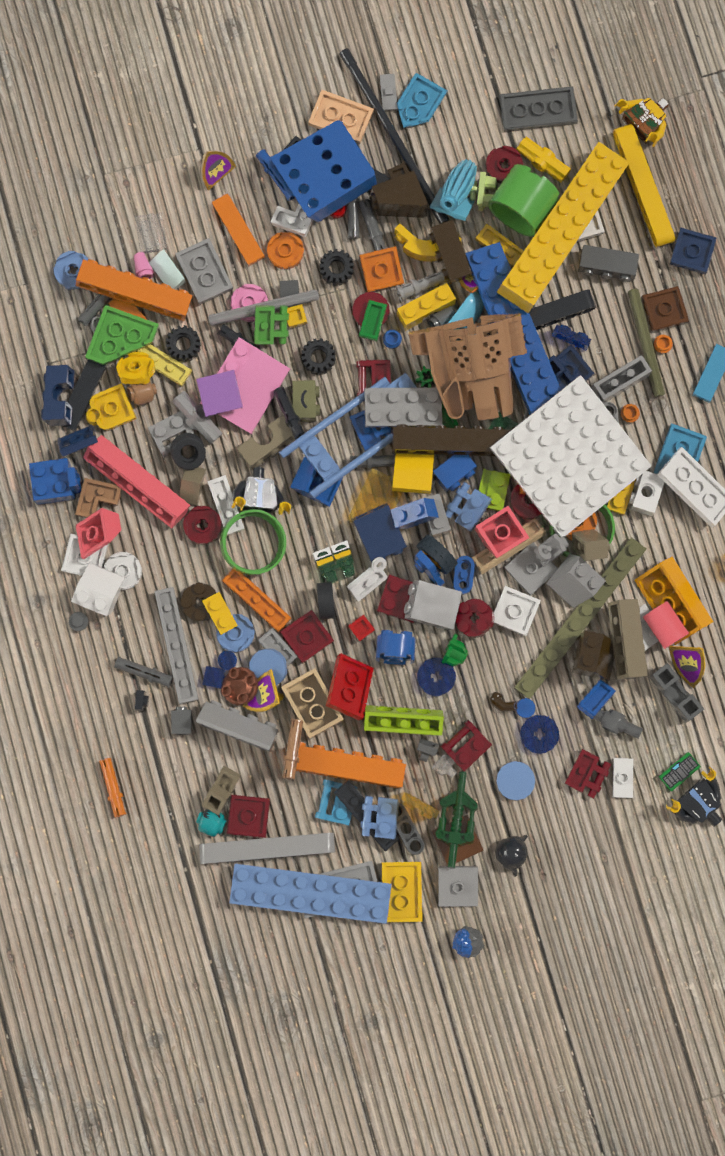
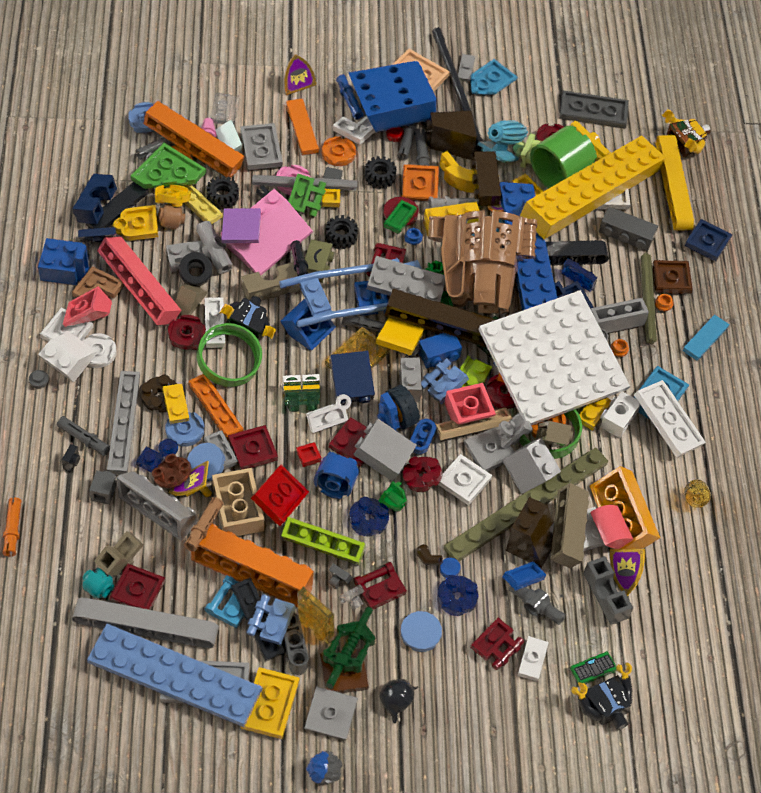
camera: 10 degrees right, 25 degrees down
(325, 600) = (281, 418): black tyre -> none
(414, 513) = (390, 364): brick -> none

